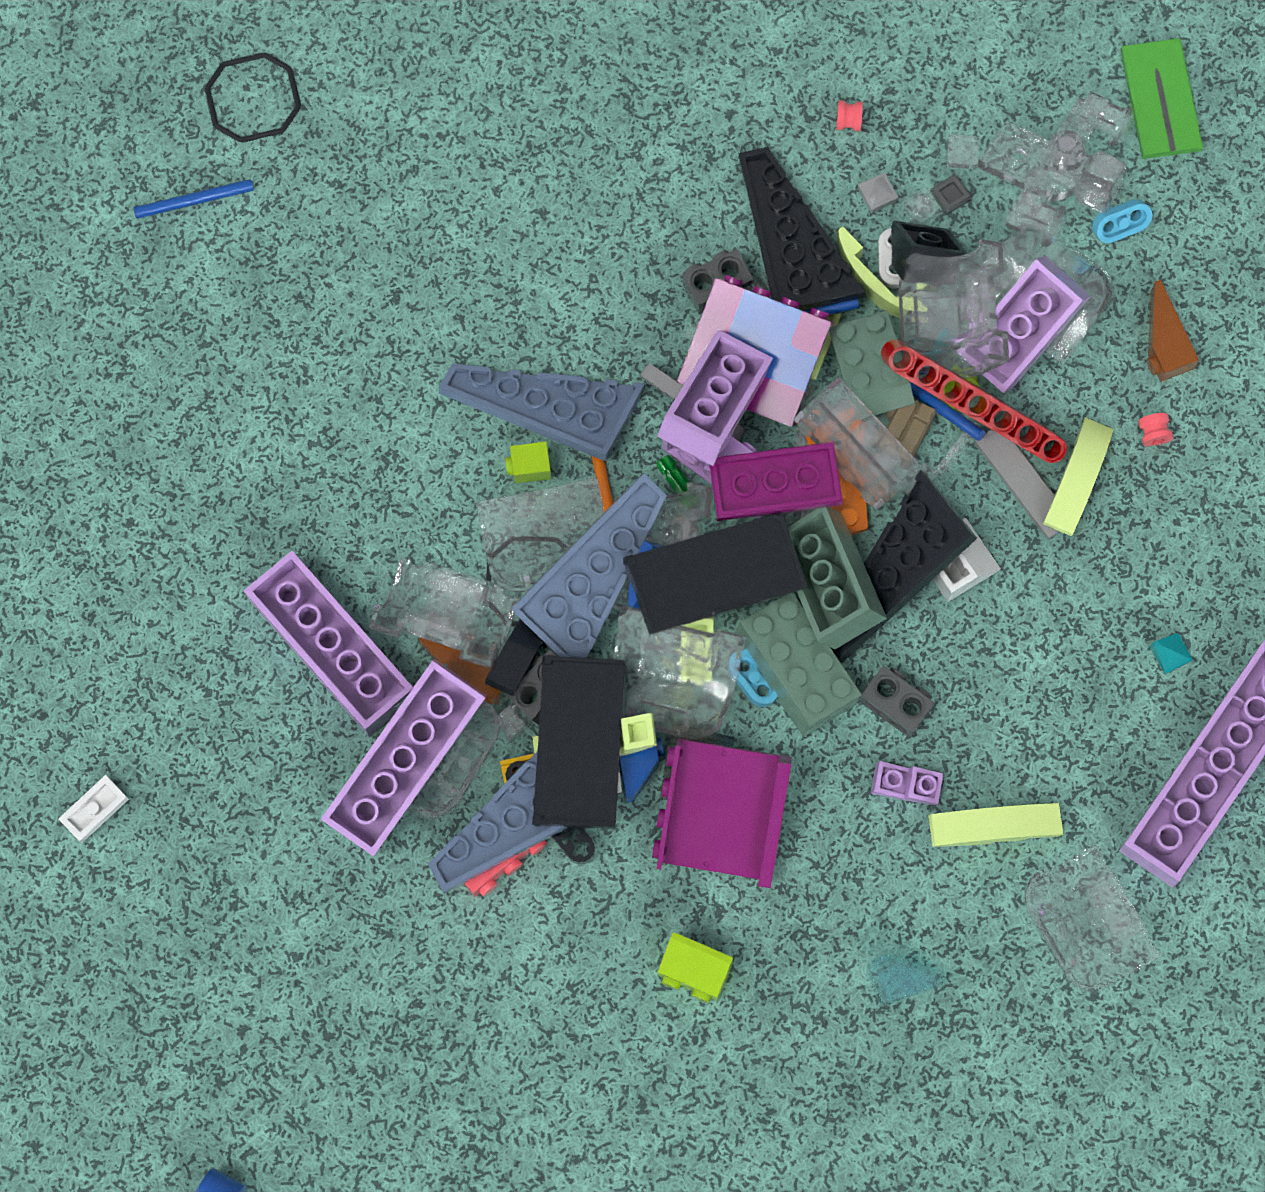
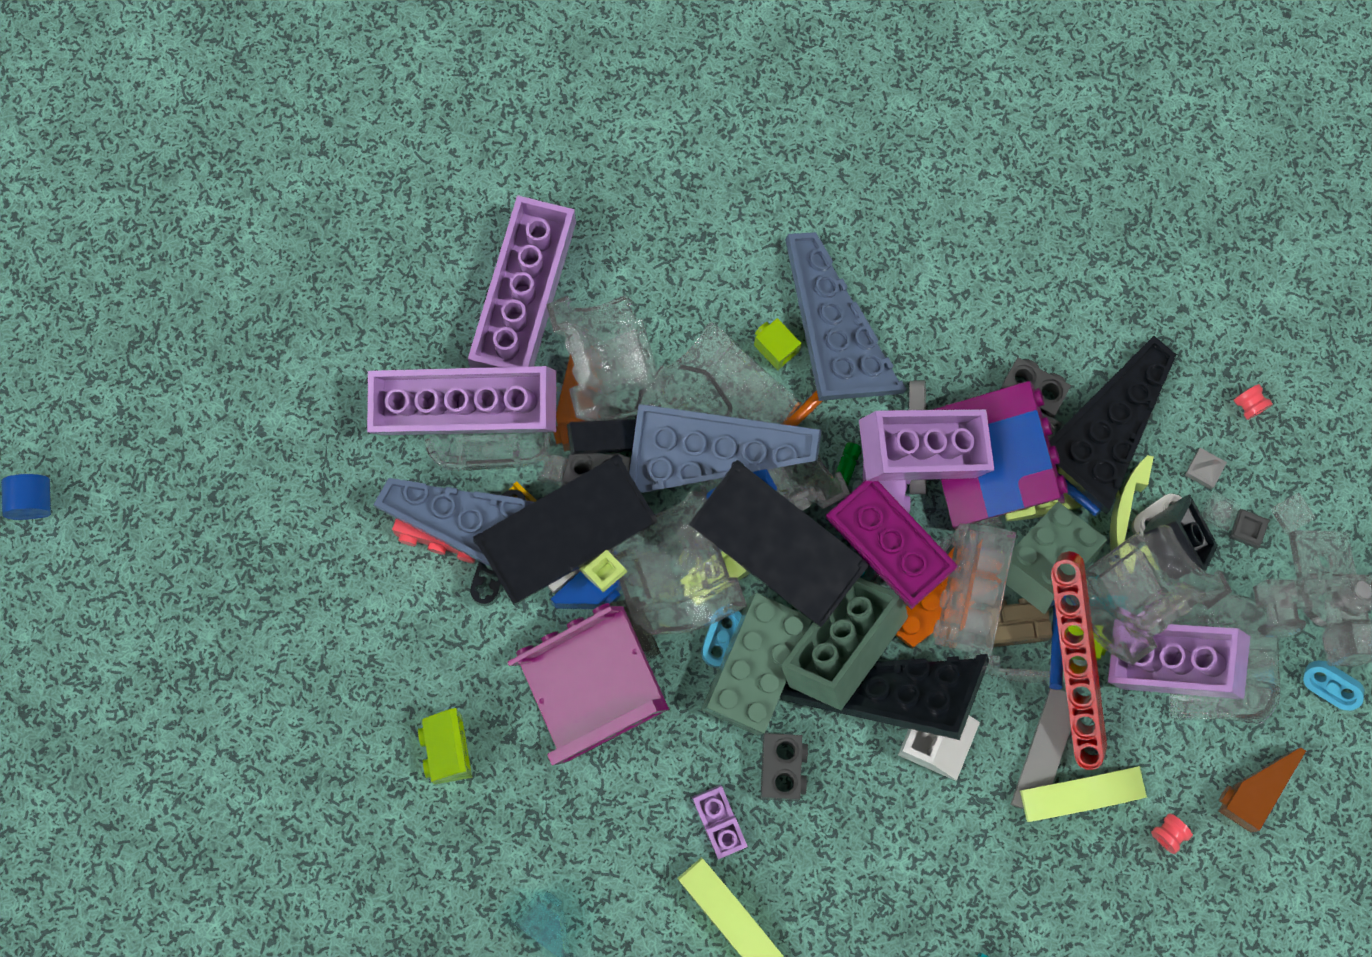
camera: 50 degrees right, 0 degrees up
(93, 809) = (277, 205): white plate -> none

